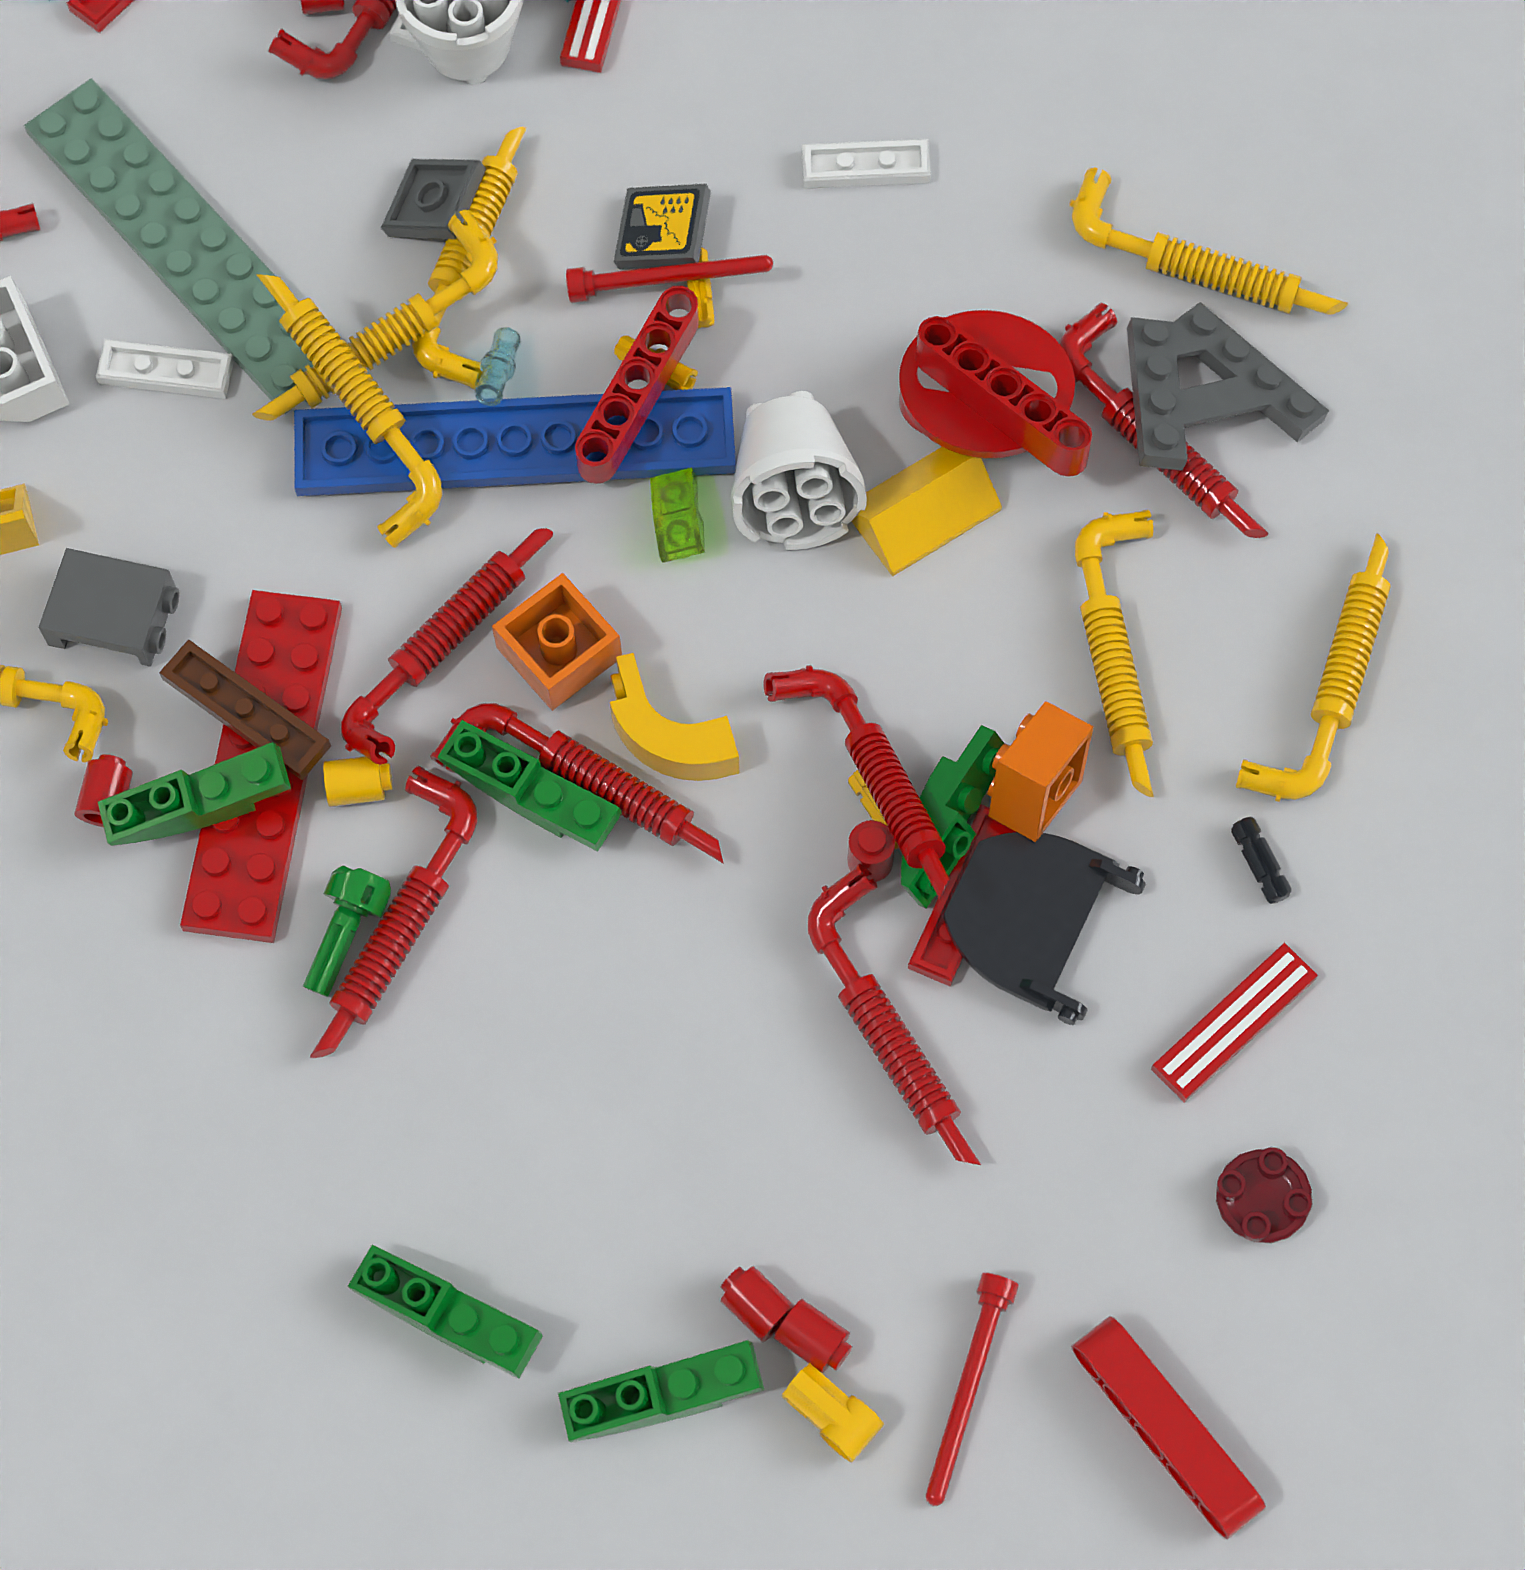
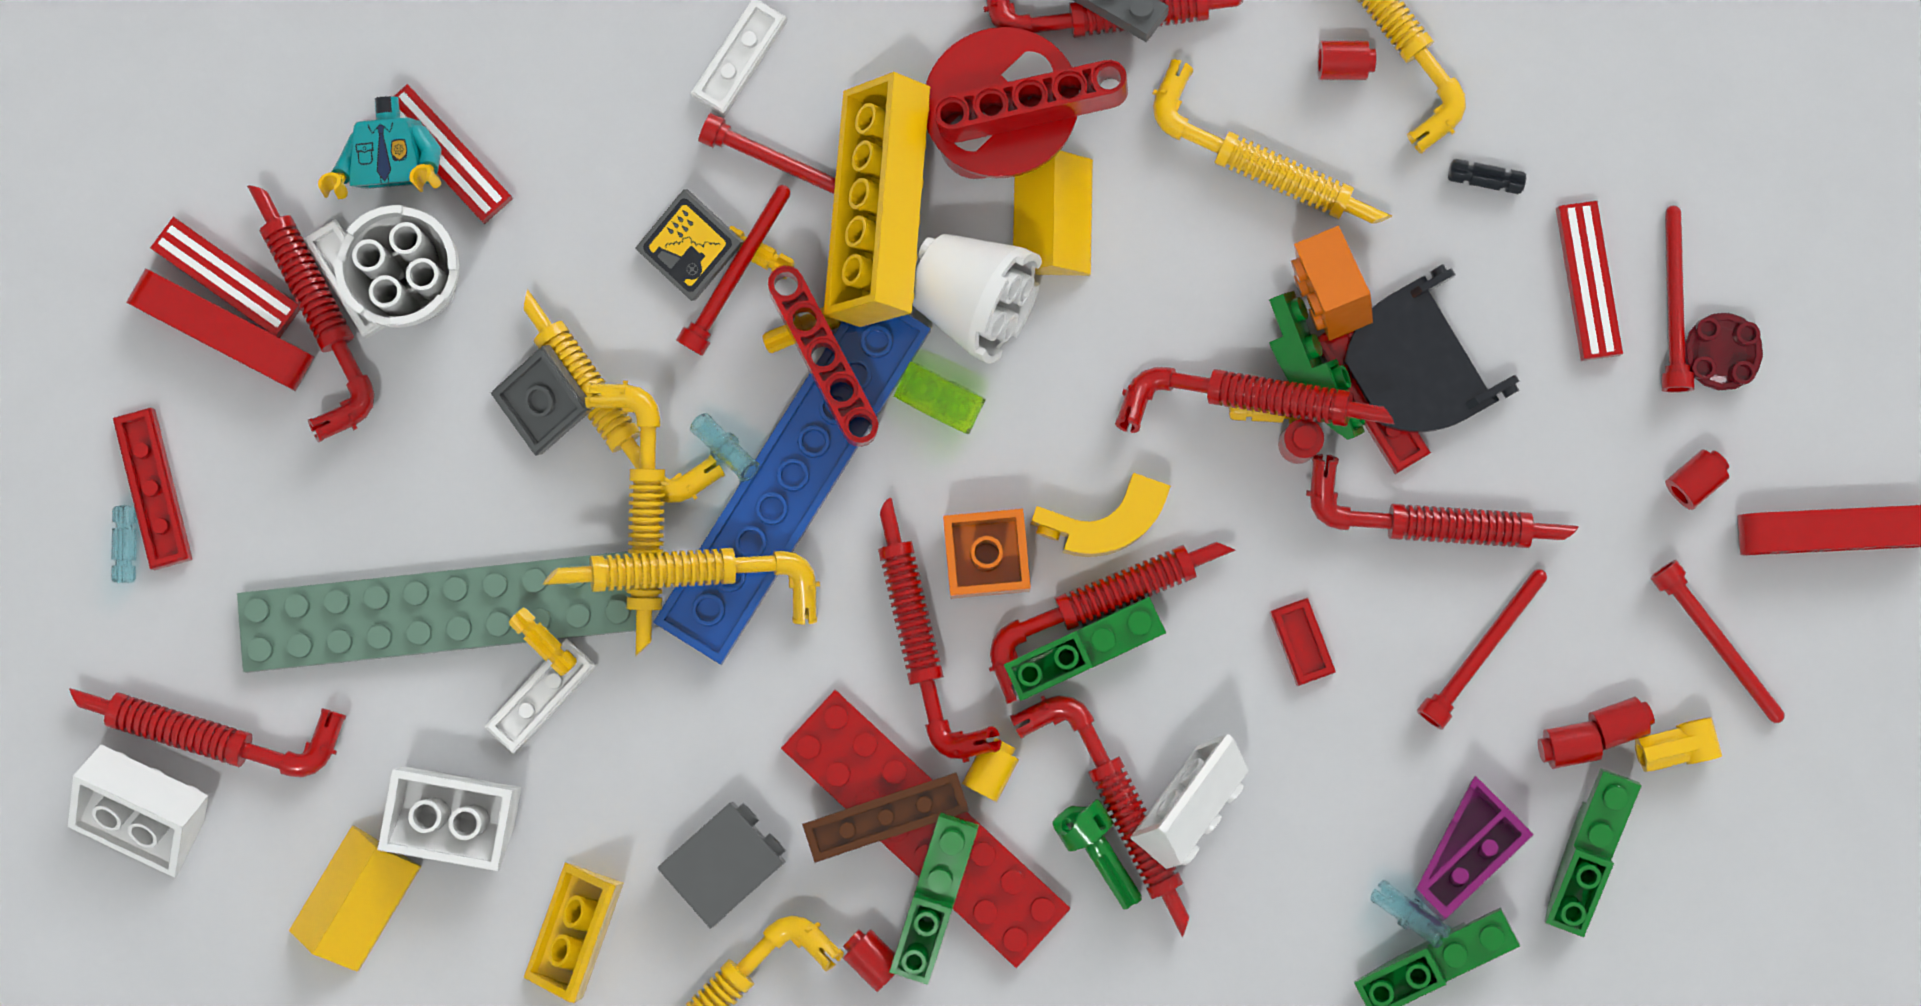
camera: 55 degrees left, 15 degrees up
(212, 330) = (542, 641): none -> yellow axle
(445, 967) = (1192, 802): none -> white slope
(477, 1252) = (1410, 914): none -> clear light blue pin
(577, 1268) = (1471, 849): none -> magenta wedge
(679, 985) = (1302, 642): none -> red tile
(705, 1152) = (1439, 707): none -> red piece
(781, 184) = (718, 133): none -> red piece
(812, 335) = (877, 200): none -> yellow brick
(1117, 1252) = (1698, 478): none -> red brick
(1204, 1166) = (1677, 374): none -> red piece
(1268, 657) = (1345, 60): none -> red brick

